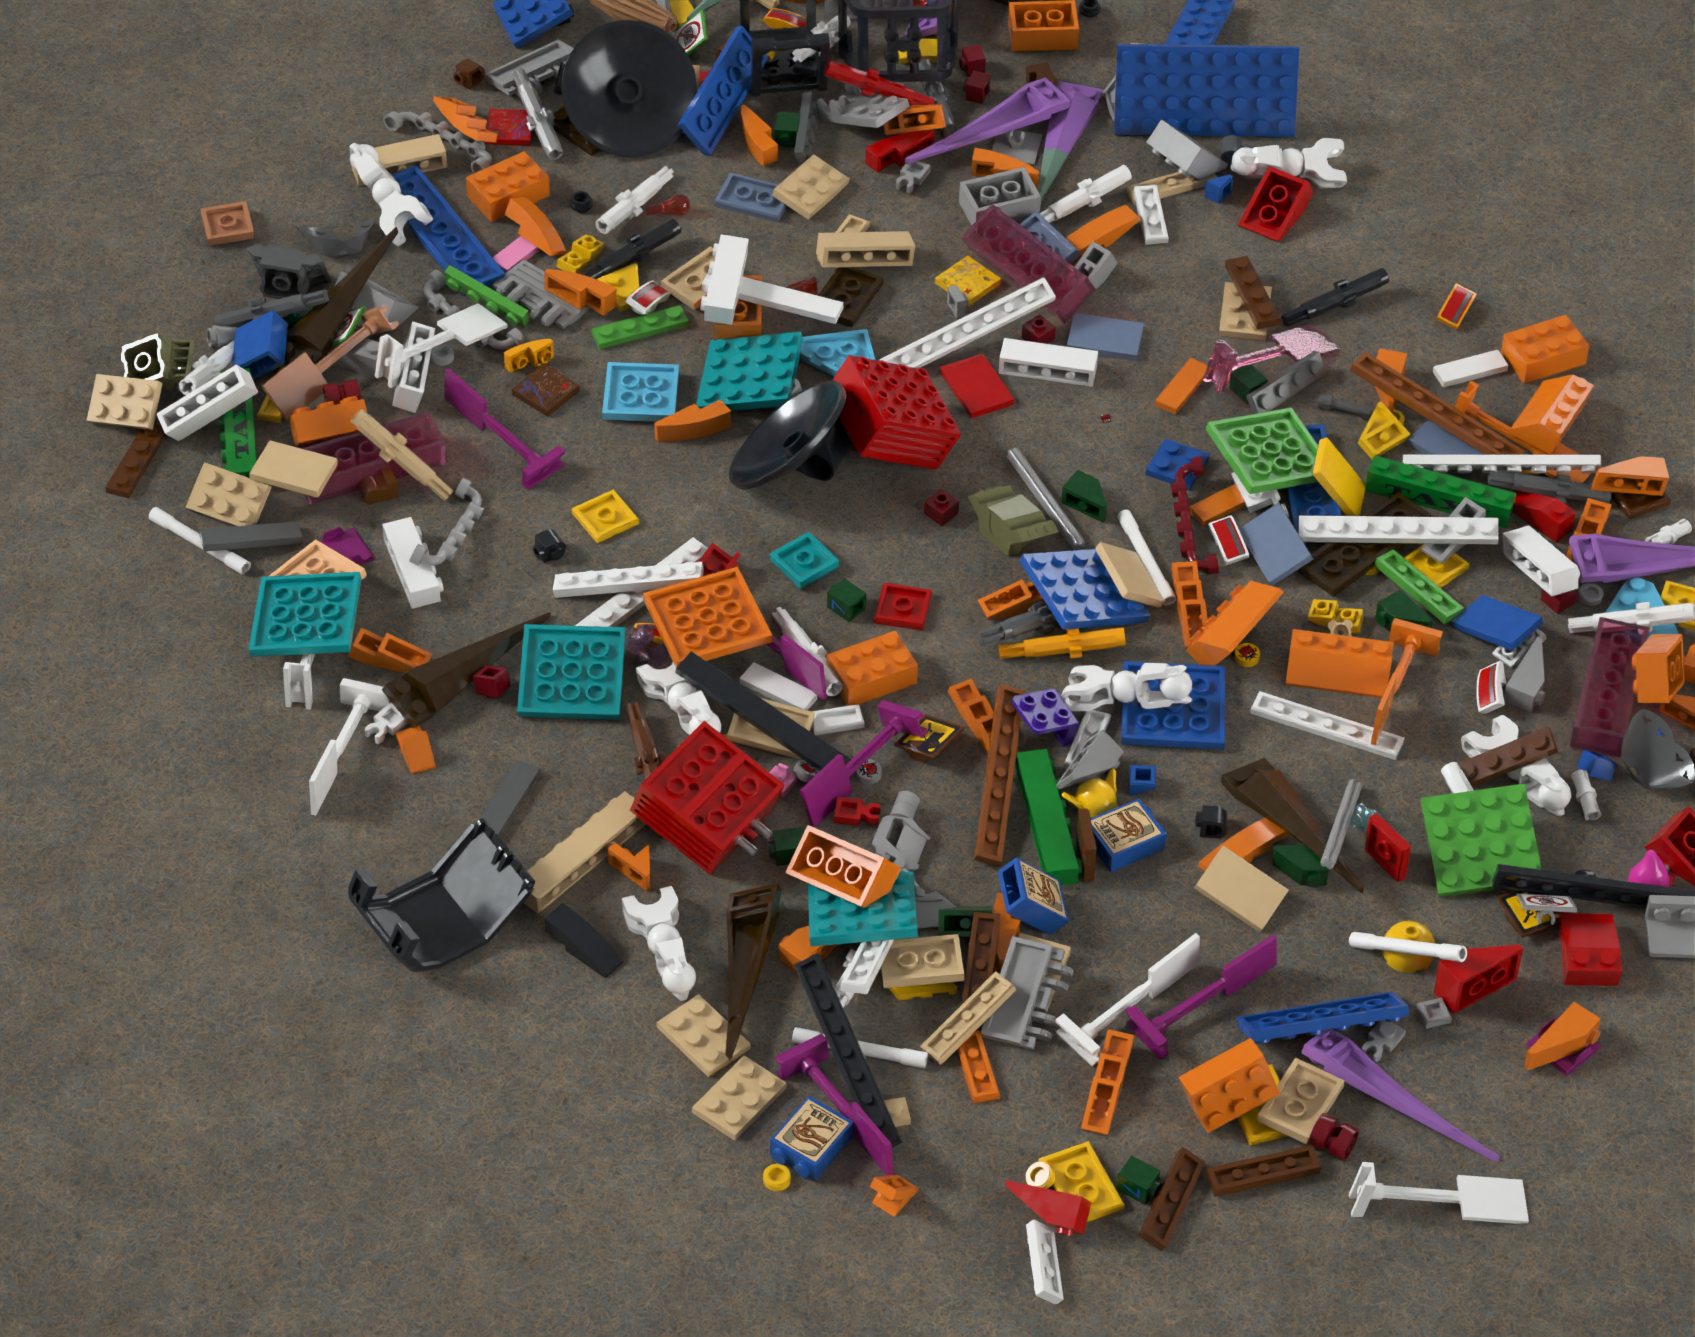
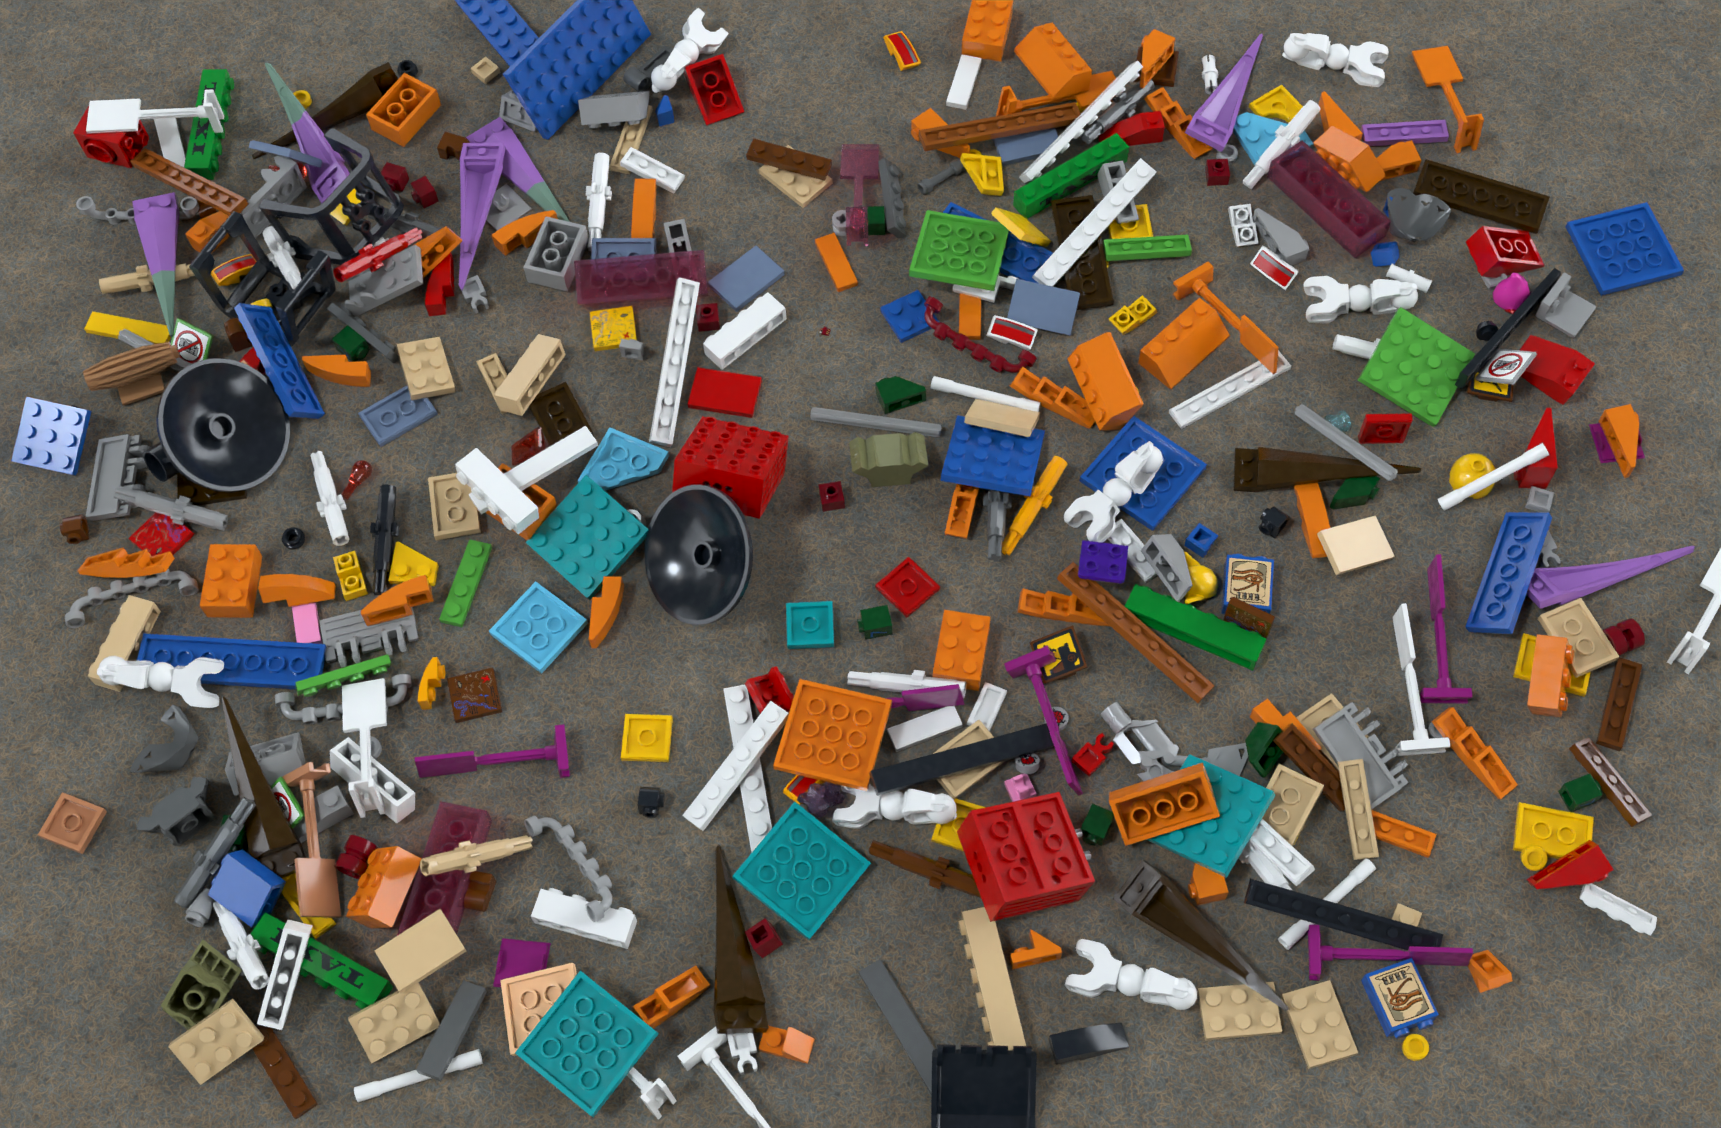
camera: 50 degrees left, 15 degrees up
(647, 297) = (445, 557): slope -> none
(1033, 896) = (1276, 687): blue brick -> none
(1343, 294) = (835, 107): black piece -> none
(1344, 626) = (1157, 323): tan plate -> none
(1401, 607) = (1164, 272): dark green slope -> none
(1497, 622) = (1218, 224): blue tile -> none
(1509, 757) = (1358, 299): reddish brown plate -> none
(1540, 560) = (1190, 160): white brick -> none

